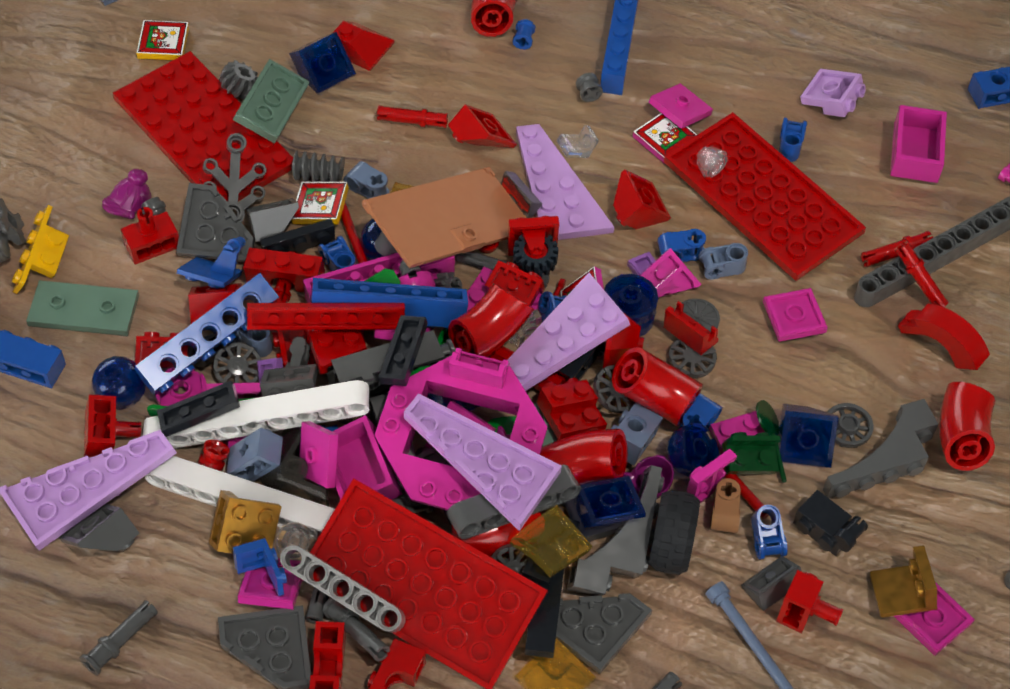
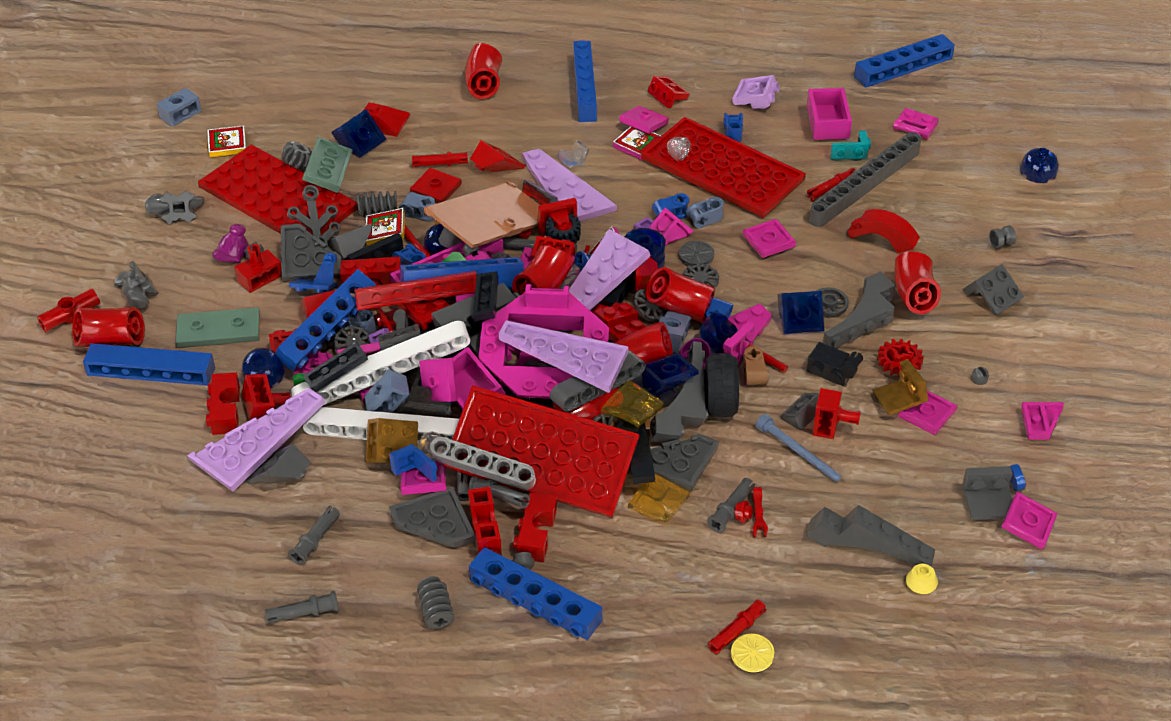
camera: 10 degrees left, 10 degrees down
(43, 252) = (174, 294): yellow bracket -> none
(62, 403) = (223, 413): none -> red arch
(78, 125) = (174, 207): none -> dark grey animal
(214, 454) = (353, 401): red wheel -> none
(397, 154) = (436, 185): none -> red plate
(522, 38) = (510, 92): blue bush -> none
(589, 87) = (570, 118): dark grey wheel -> none
(638, 202) = (630, 186): red slope -> none
(689, 330) = (692, 259): red hinge -> none
(721, 68) = (667, 90): none -> red bracket
(754, 453) = (766, 330): dark green bracket -> none
(768, 534) = (791, 380): blue piece -> none
(770, 423) = (771, 309): dark green piece -> none
(916, 268) = (854, 193): red pin -> none
(919, 529) = (893, 353): none -> red gear
(937, 203) = (852, 150): none -> teal bracket

